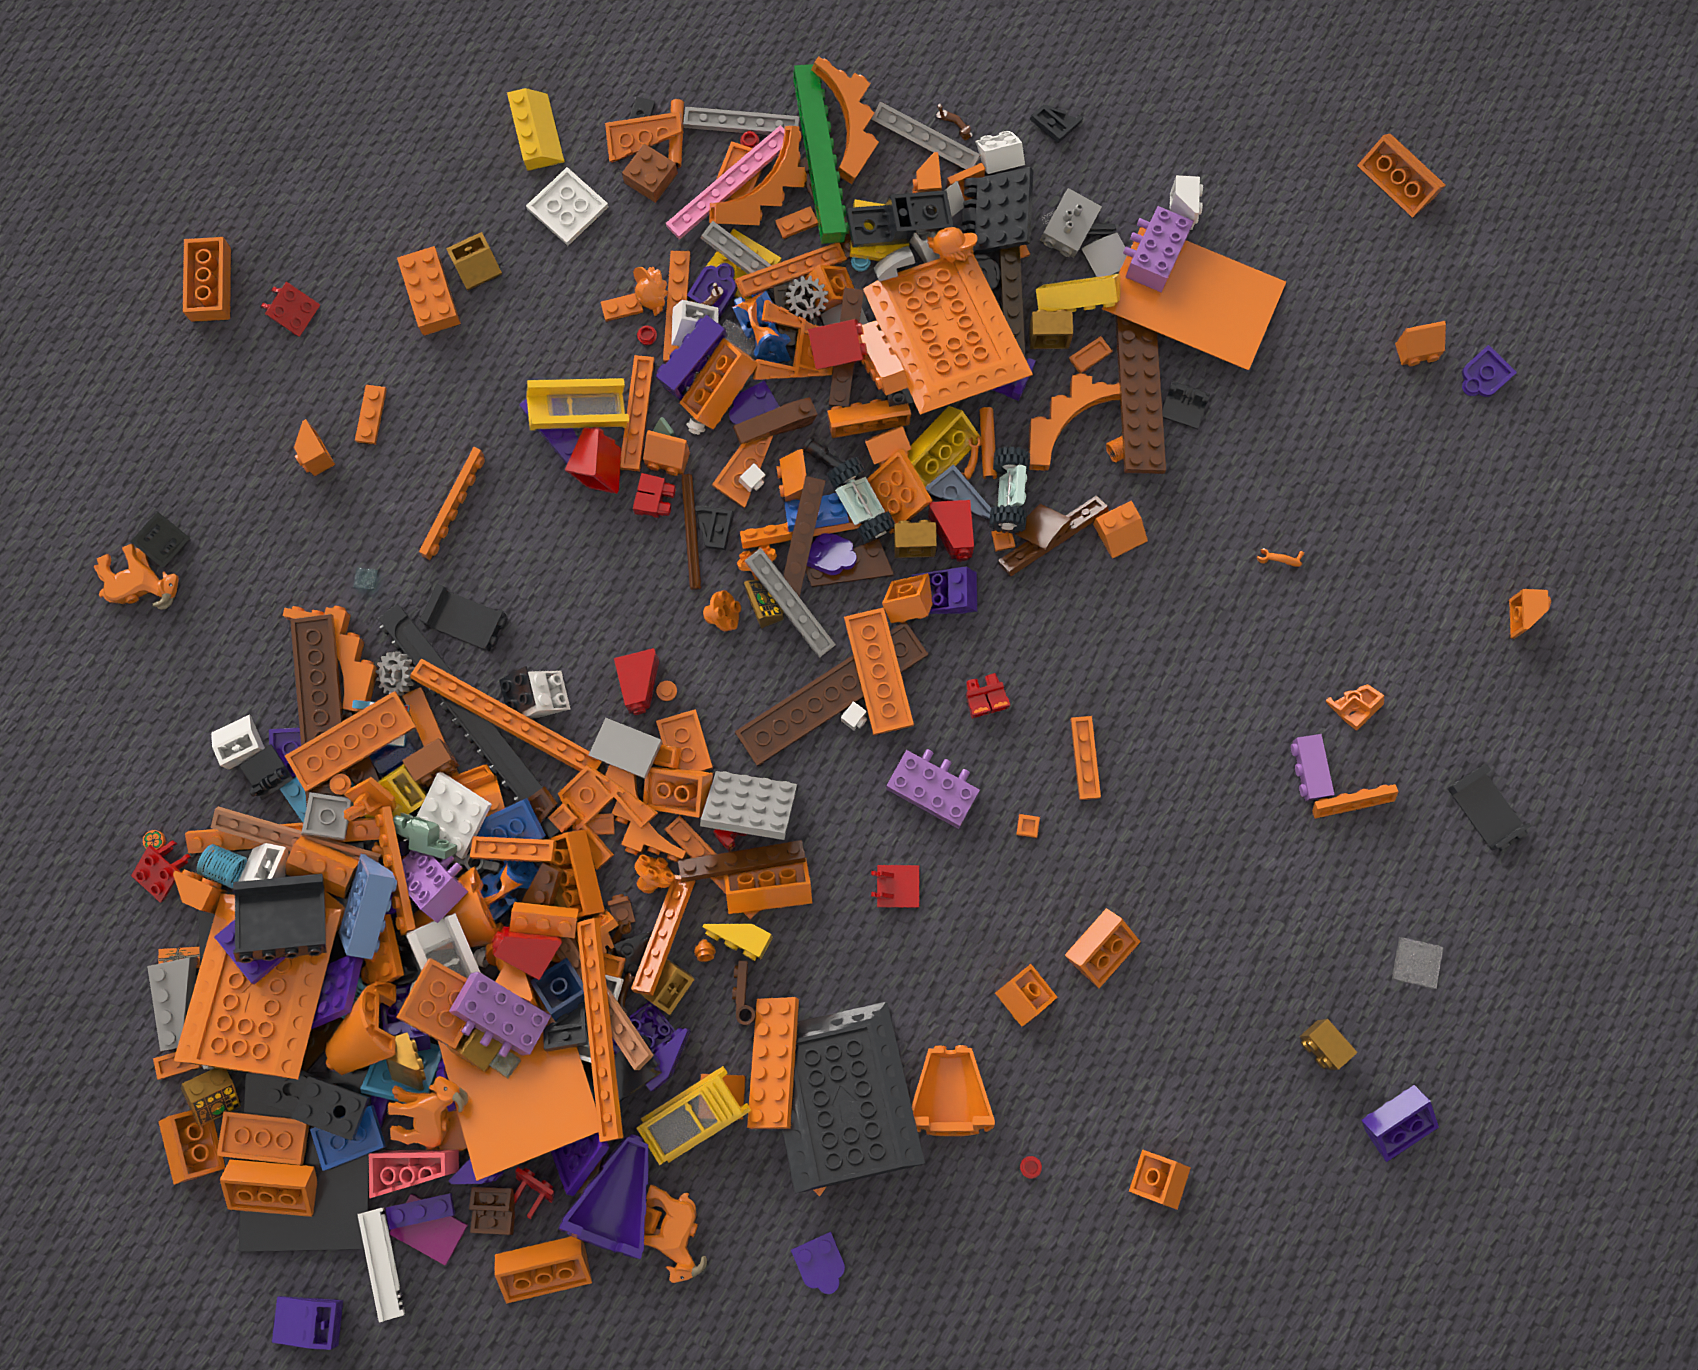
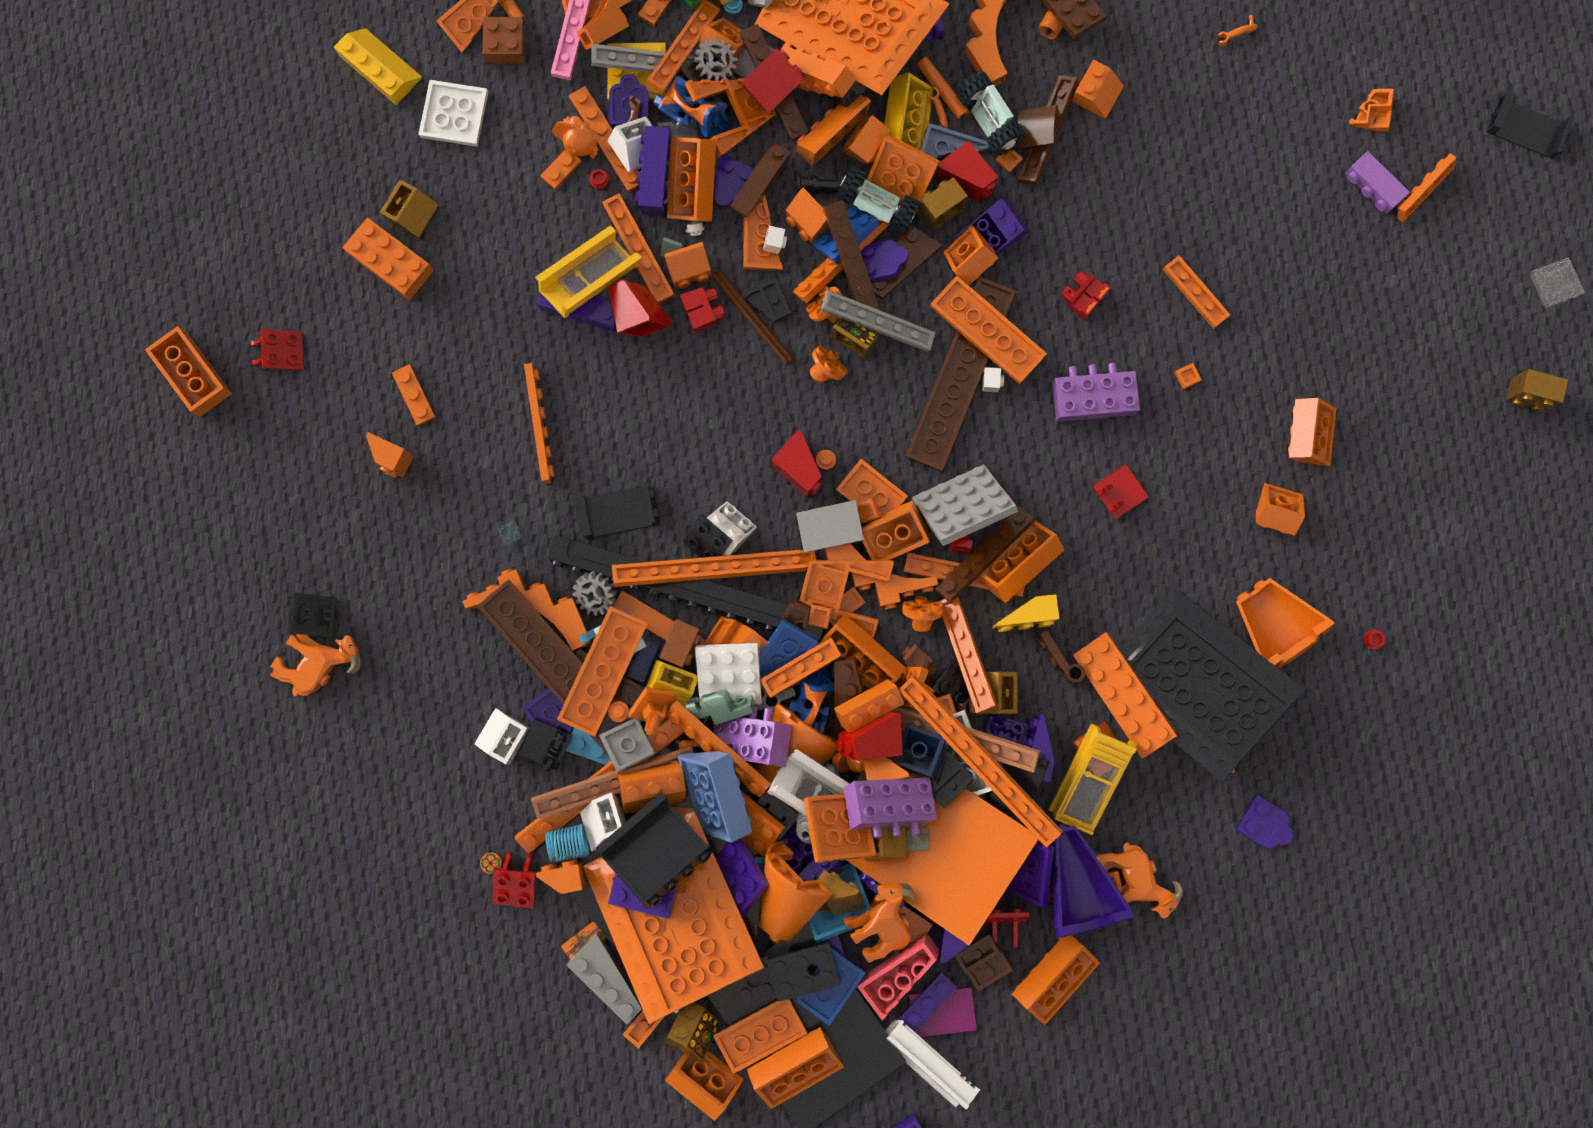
camera: 35 degrees left, 5 degrees up
(704, 951) = (1005, 645): orange plate -> none
(1159, 1179) = (1478, 581): orange slope -> none

